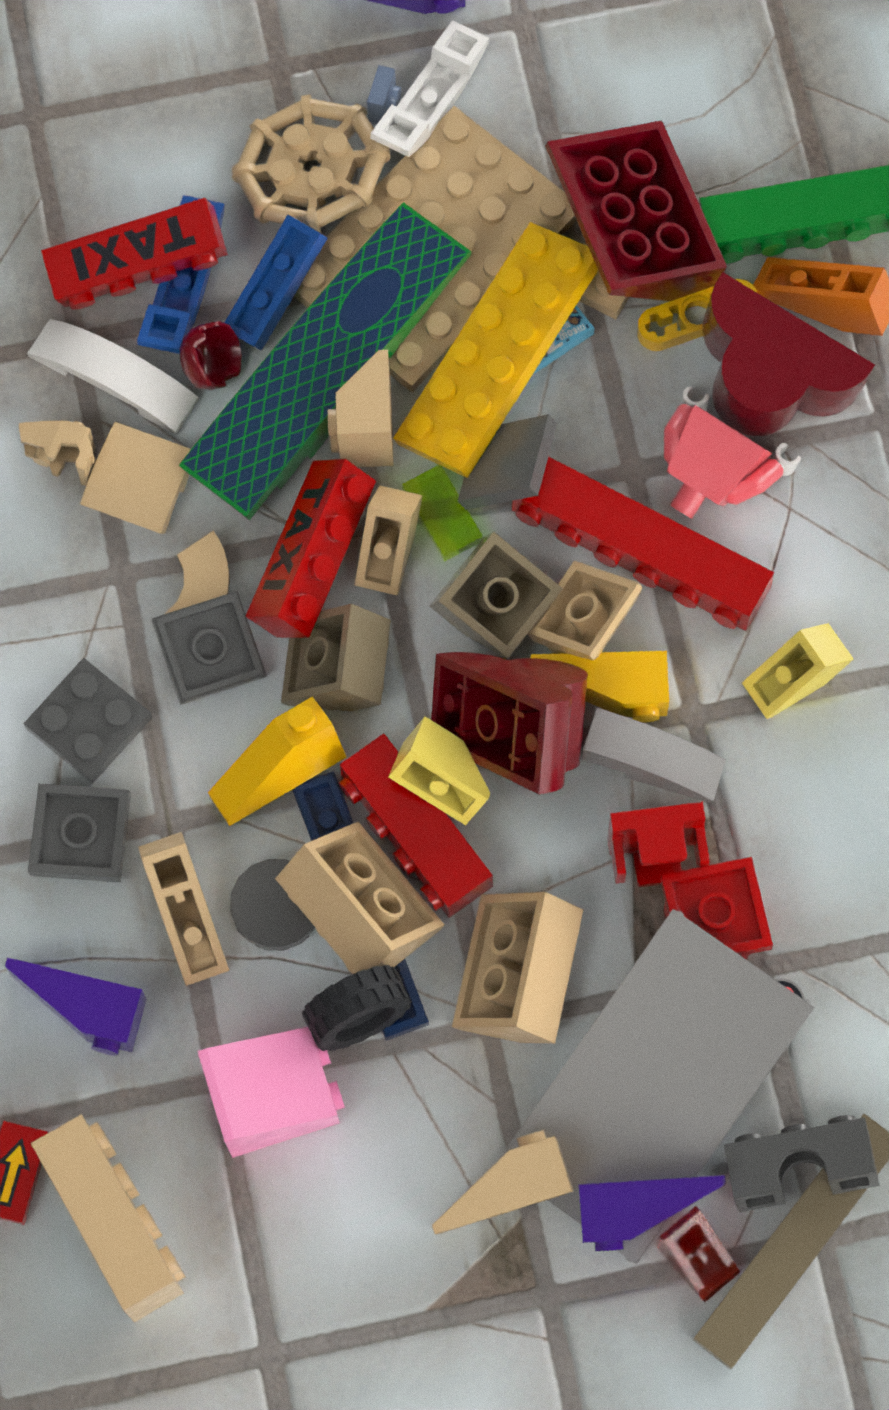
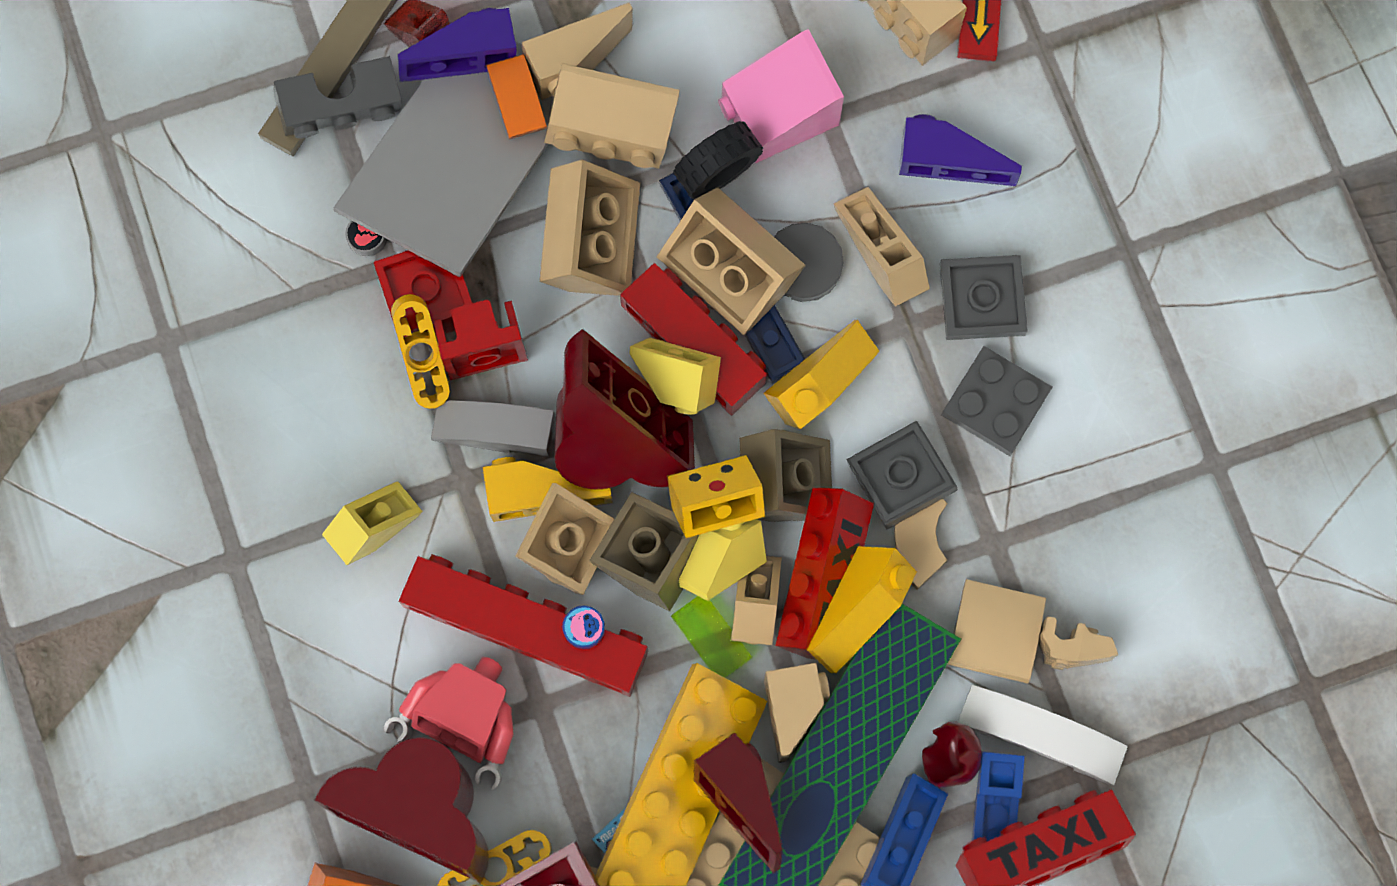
camera: 170 degrees right, 5 degrees up
(272, 509) = (862, 604): none -> yellow slope
(416, 621) = (716, 496): none -> yellow brick
(418, 574) = (723, 558): none -> light yellow slope
(433, 324) = (737, 786): none -> dark red slope
(478, 1080) = (611, 116): none -> tan slope
(510, 464) = (651, 676): dark grey tile -> none
(577, 516) = (583, 627): none -> tile
(585, 1130) = (516, 96): none -> orange slope
(723, 849) = (424, 323): none -> yellow beam

